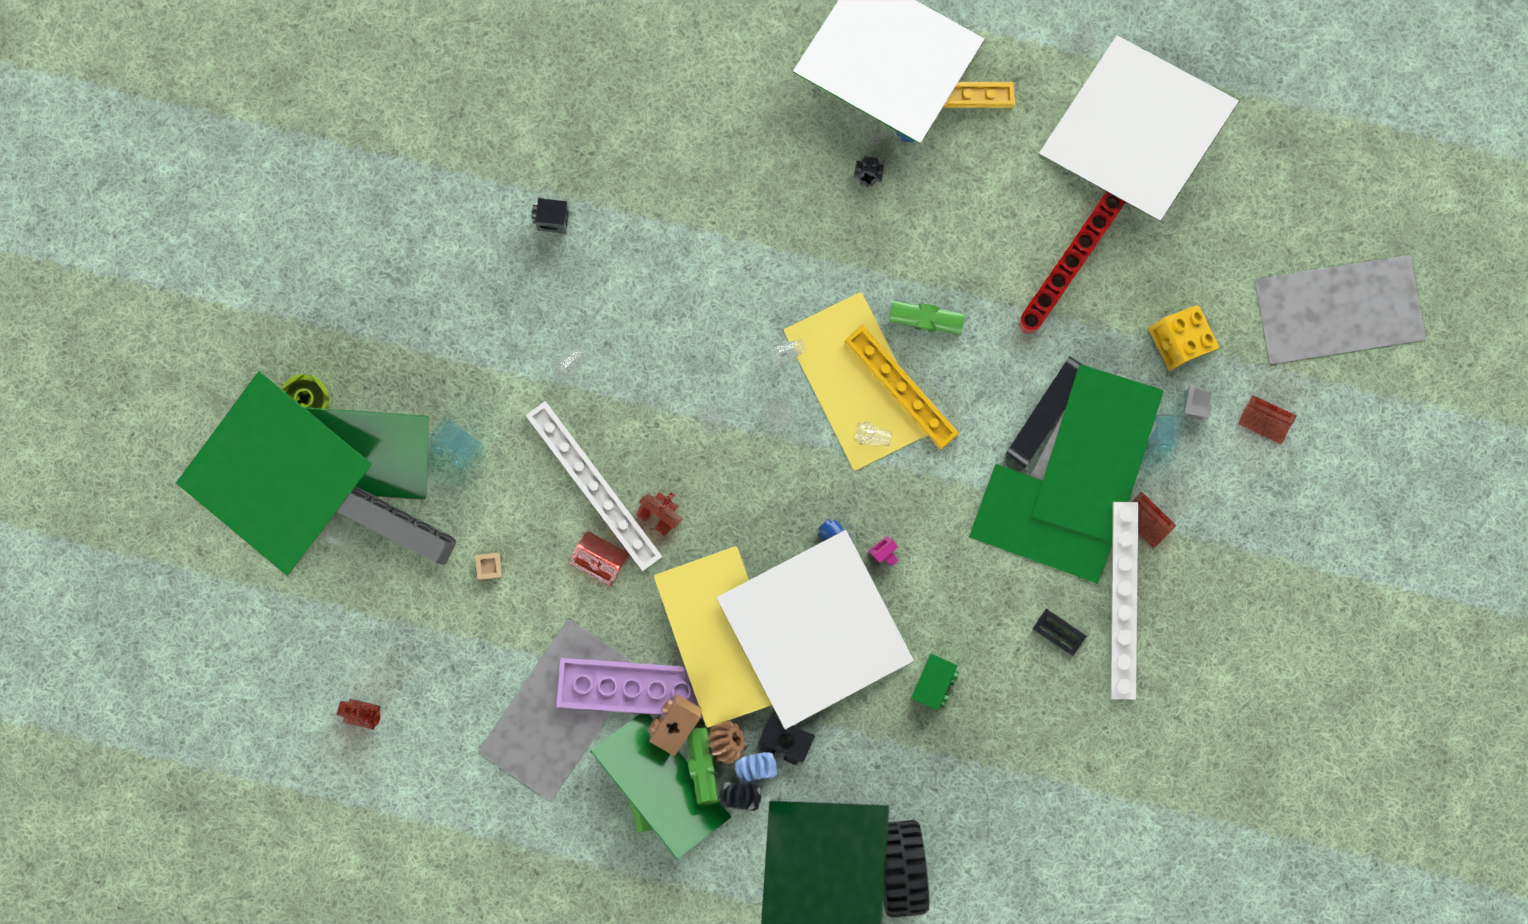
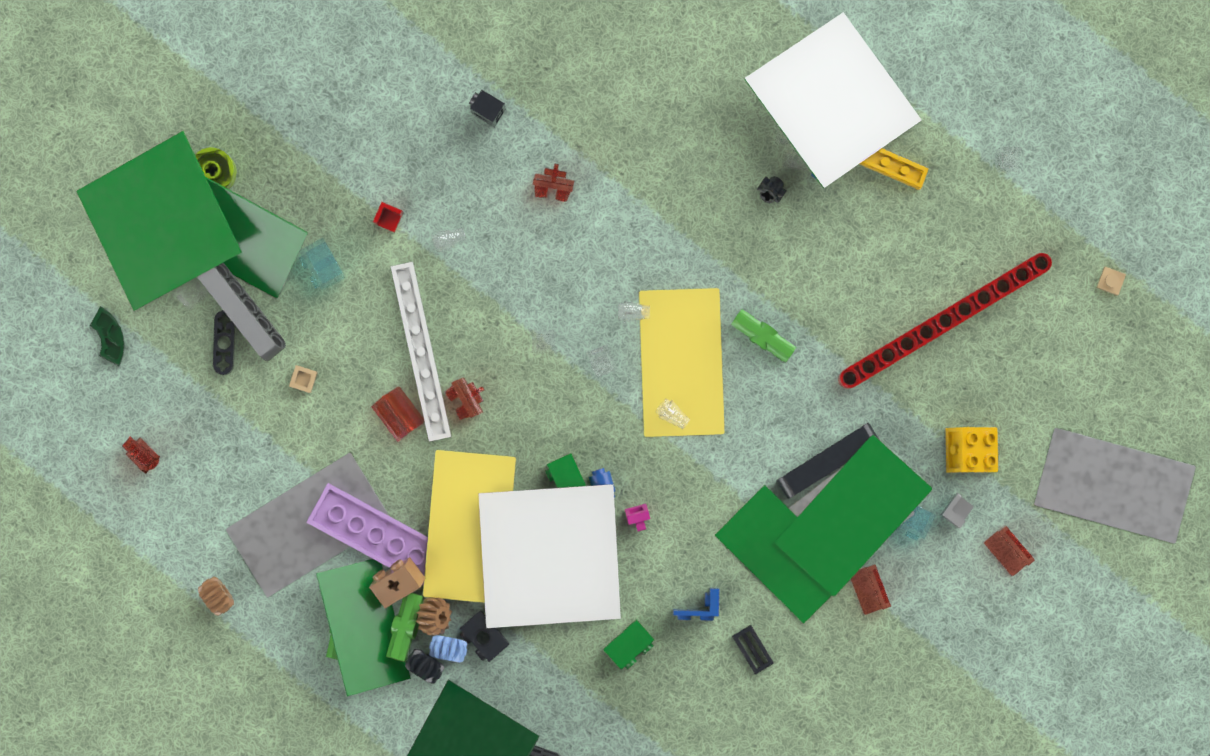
camera: 25 degrees right, 5 degrees up
(275, 610) = (111, 336): none -> dark green tile
(392, 585) = (218, 359): none -> black beam
(498, 821) = (215, 596): none -> medium nougat gear
(501, 367) = (388, 217): none -> red panel
(640, 264) = (543, 182): none -> clear red hips
(792, 540) = (565, 472): none -> green brick
(901, 387) = (715, 384): yellow tile -> none
(995, 600) = (711, 601): none -> blue bracket
(1124, 600) = (818, 648): white plate -> none
(1139, 127) = (1016, 256): white piece -> none
(1244, 112) = (1111, 281): none -> tan plate

